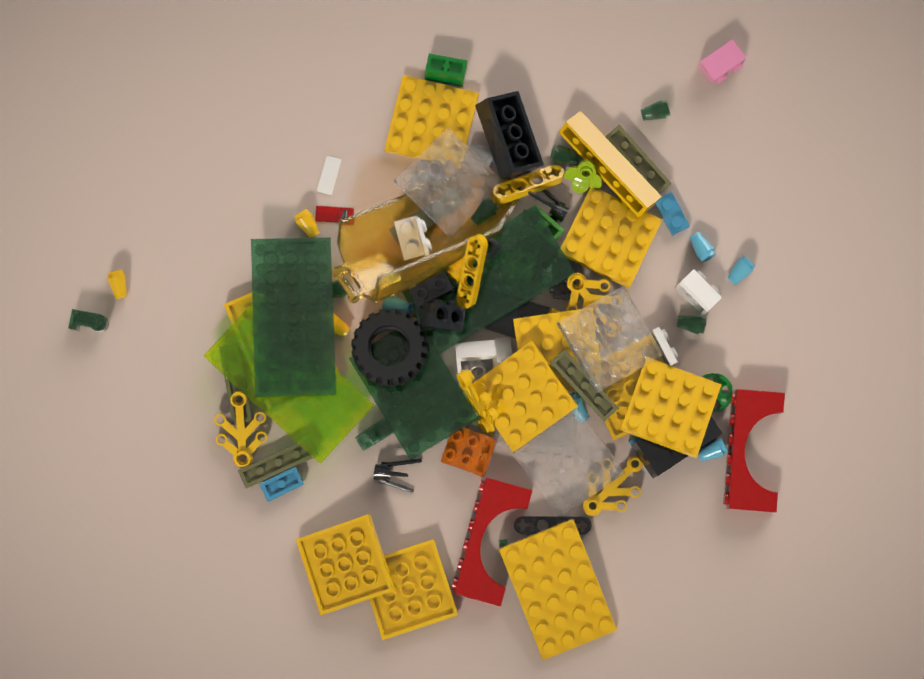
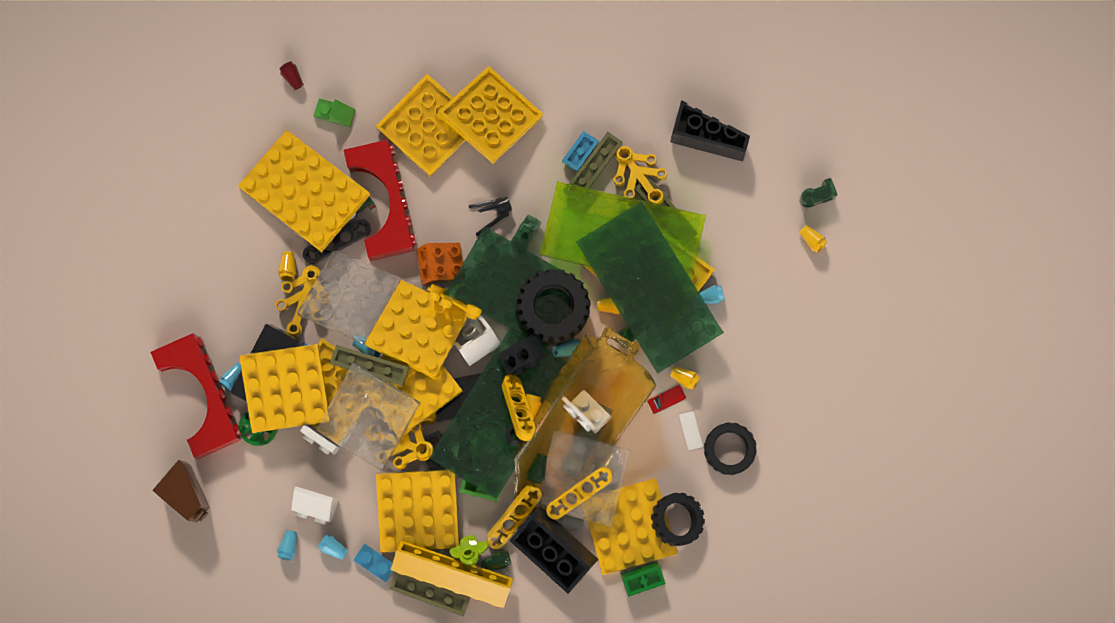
camera: 155 degrees right, 5 degrees down
(155, 433) = (707, 134): none -> black wedge
(239, 283) = (712, 294): none -> medium azure cone
(307, 118) = (749, 441): none -> black tyre
(371, 91) = (696, 519): none -> black tyre
(433, 288) = (544, 375): black brick -> none
(460, 172) = (579, 492): none -> yellow beam
(489, 652) = (334, 112): none -> bright green slope
(503, 348) = (457, 362): white sticker -> none
(557, 210) = (474, 508): black plant -> none
(611, 524) = (287, 267): none -> yellow cone
(693, 324) = (306, 475): clear green cone -> none
(810, 364) = (183, 492): none -> reddish brown slope

